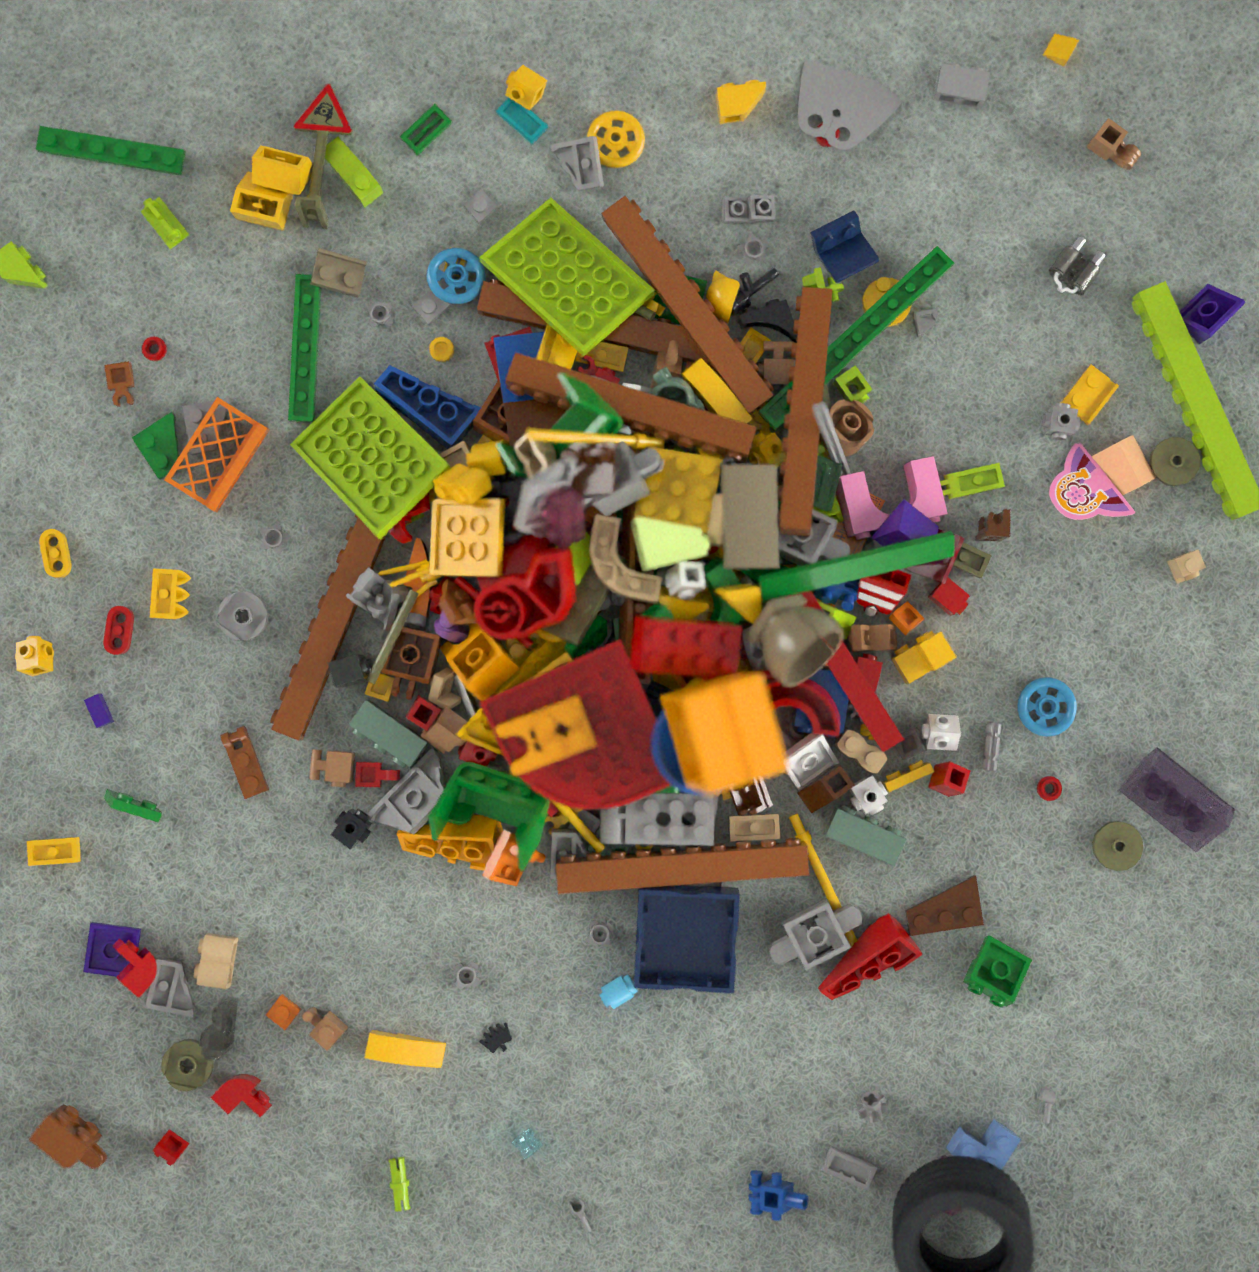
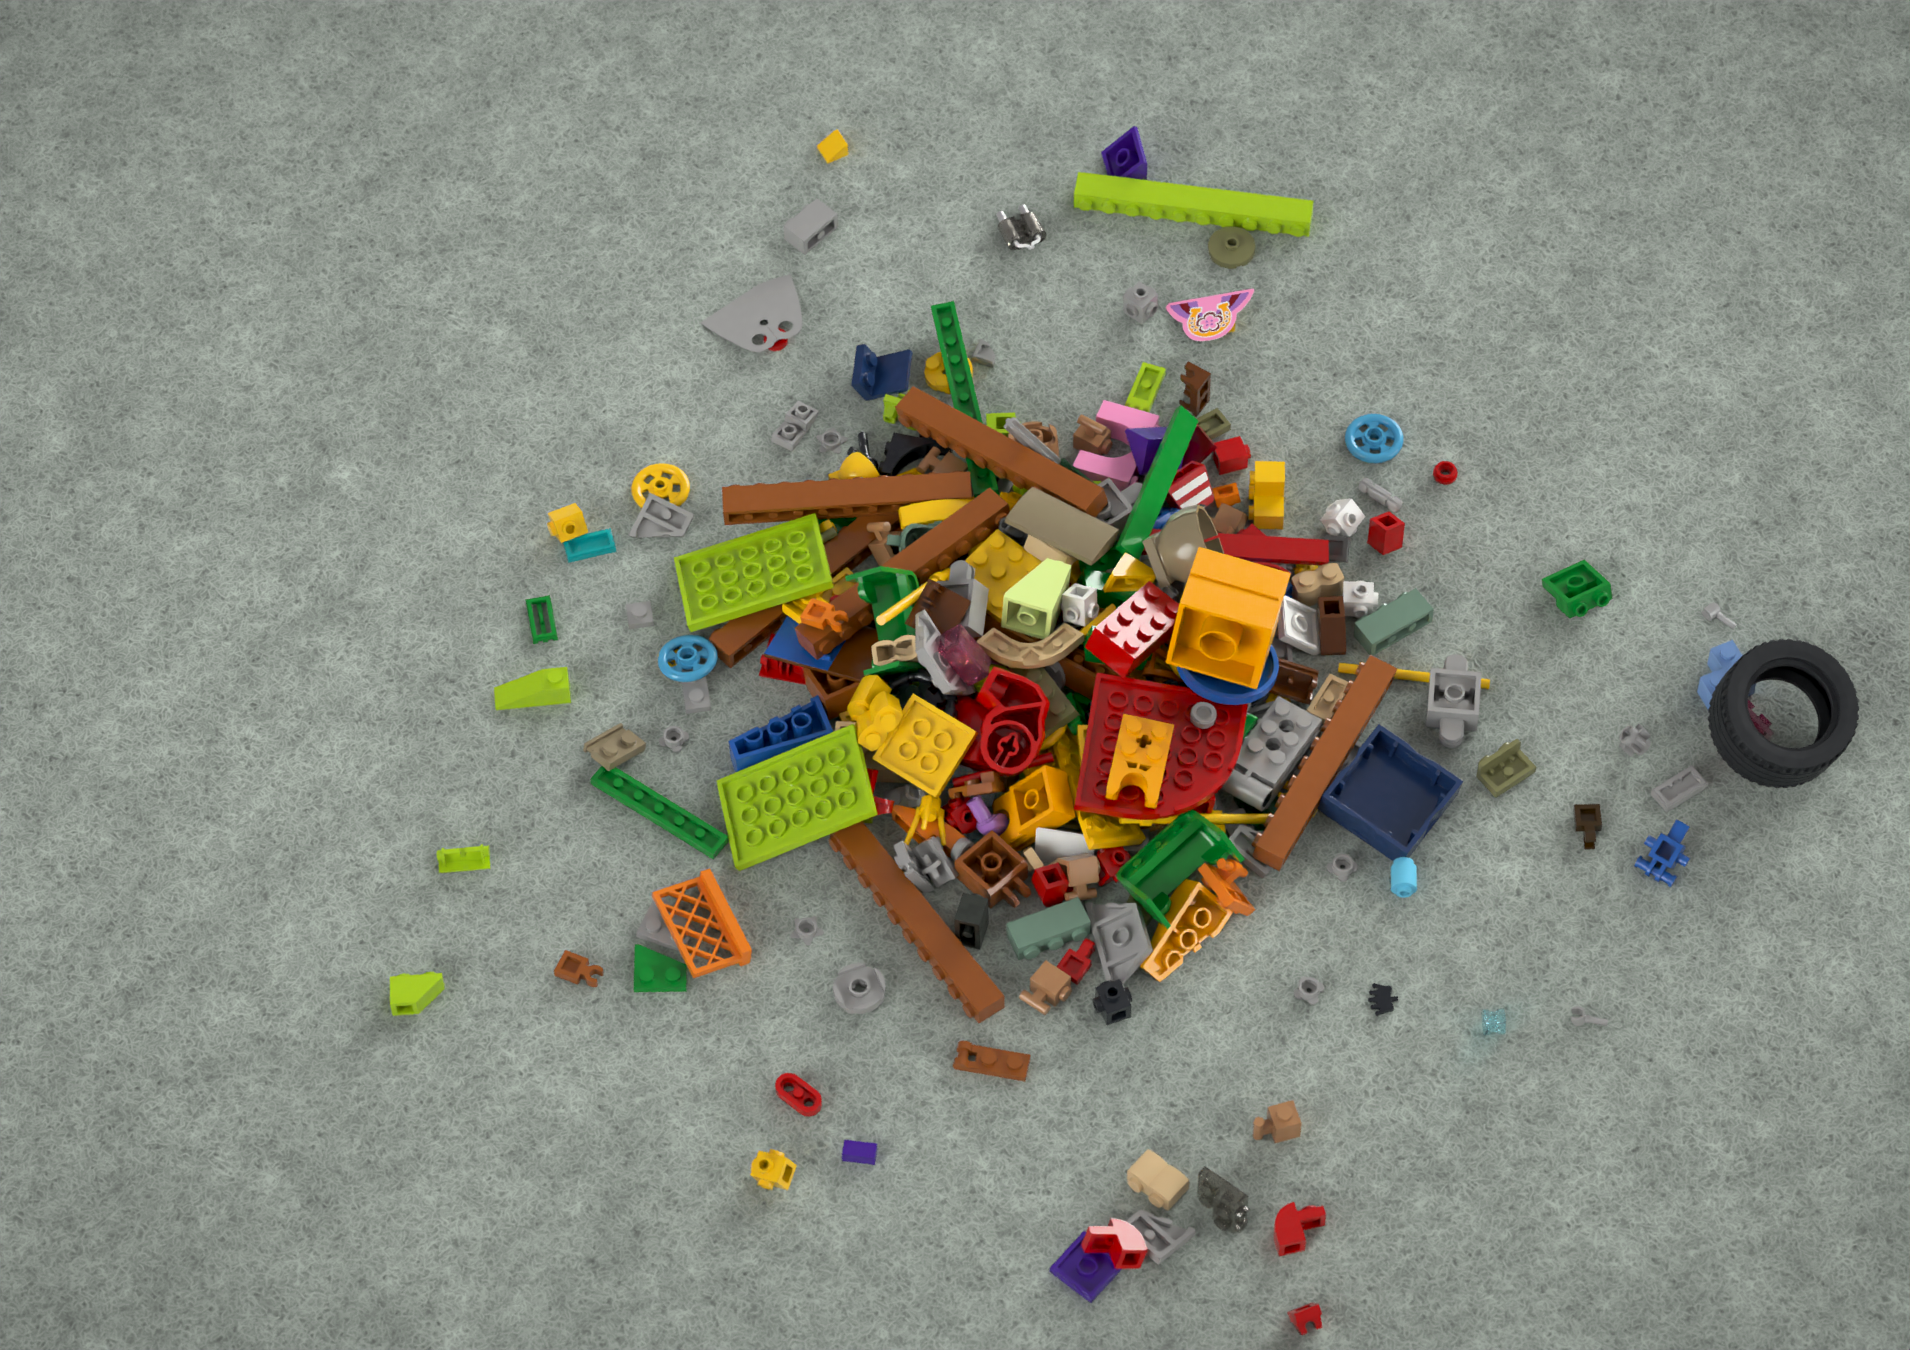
camera: 55 degrees left, 30 degrees down
(53, 851) = (961, 1261): yellow plate -> none
(54, 554) = (692, 1107): yellow plate -> none
(110, 150) = (366, 866): green plate -> none
(126, 803) = (965, 1166): green wing -> none
(146, 348) = (568, 921): red plate -> none
(167, 594) = (795, 1036): yellow plate -> none
(176, 1073) = (1237, 1274): olive plate -> none
(260, 205) = (509, 769): yellow slope -> none
(281, 170) = (496, 731): yellow slope -> none
(283, 1012) = (1242, 1156): orange plate -> none
(324, 118) = (474, 685): olive piece -> none
(381, 689) = (1002, 913): yellow plate -> none
(392, 636) = (966, 863): olive bar -> none
(399, 1184) = (1464, 1145): lime pin -> none
(404, 1049) = (1341, 1073): yellow slope -> none
(441, 349) = (739, 710): yellow tile -> none
(534, 369) = (821, 614): none -> orange plate
(636, 754) = (1203, 715): none -> light grey tile
(737, 101) = (699, 384): yellow slope -> none
(770, 1110) = (1588, 819): none -> dark brown plate
(775, 1014) = (1504, 768): none -> olive bracket
(877, 949) = (1500, 659): red wedge -> none
(892, 469) = (1092, 436): none -> medium nougat brick
(917, 770) = (1362, 556): yellow plate -> none
(949, 910) = (1500, 599): reddish brown wing -> none
(1090, 393) = (1130, 270): yellow plate -> none
(1106, 839) = (1528, 461): olive plate -> none
(1109, 144) = (937, 154): medium nougat brick -> none
(1125, 465) = (1208, 280): light nougat slope -> none
(1177, 800) = (1517, 389): clear purple slope -> none
(1186, 566) = (1324, 281): tan brick -> none

